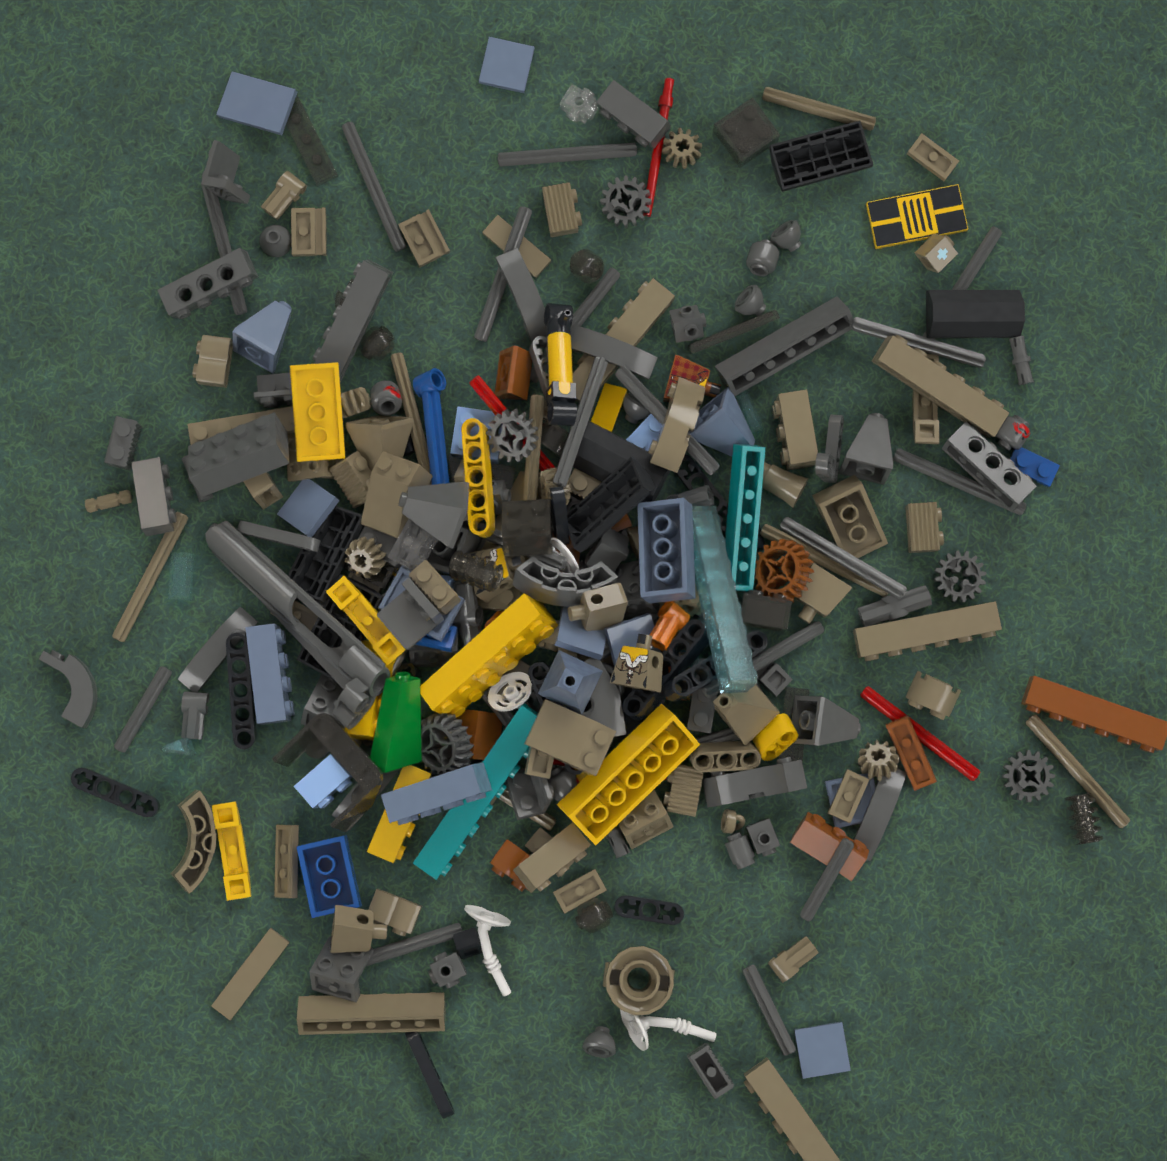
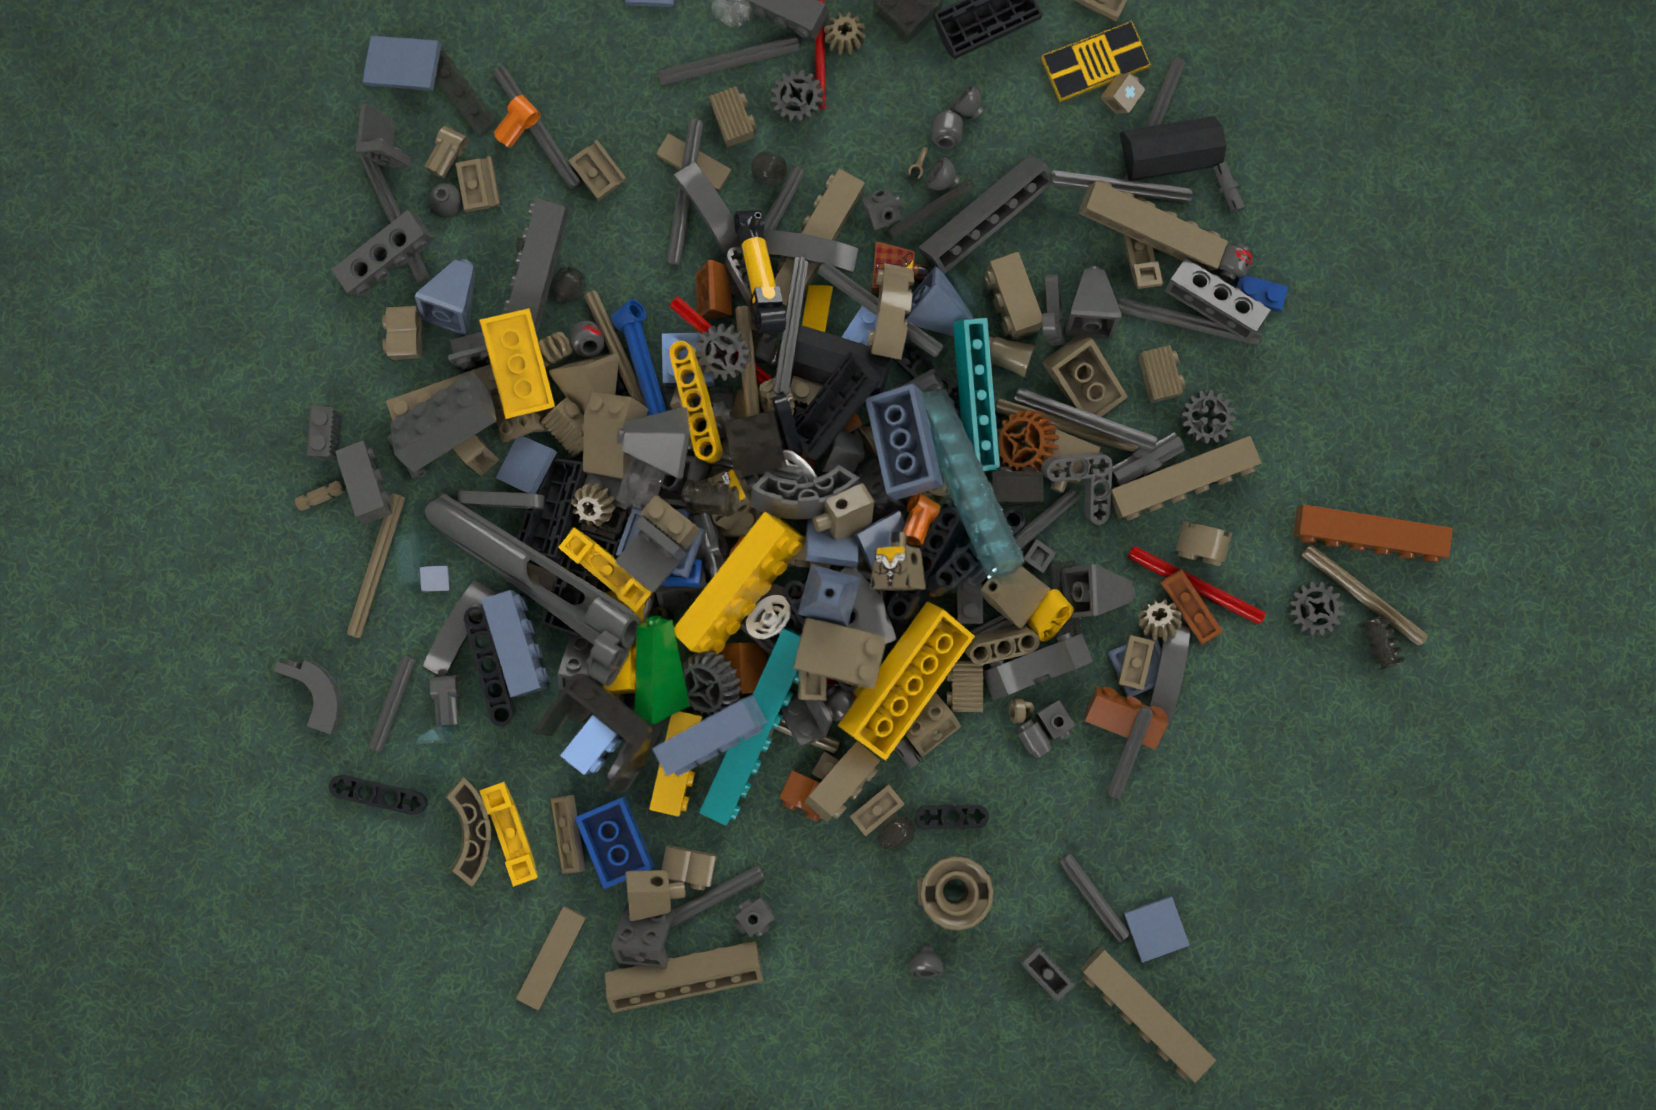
camera: 10 degrees left, 0 degrees up
(203, 599) = (434, 579): none -> sand blue slope
(361, 175) = (520, 117): none -> orange piece
(430, 1074) = (756, 1028): black beam -> none
(467, 943) = (771, 885): black slope -> none
(485, 921) = (785, 858): white dish -> none
(634, 409) = (844, 305): dark grey brick -> none
(638, 1025) = (963, 939): white dish -> none
(731, 284) = (919, 163): none -> dark tan hand
(790, 961) = (1107, 842): dark tan piece -> none
(838, 612) = (1091, 474): none -> dark grey beam

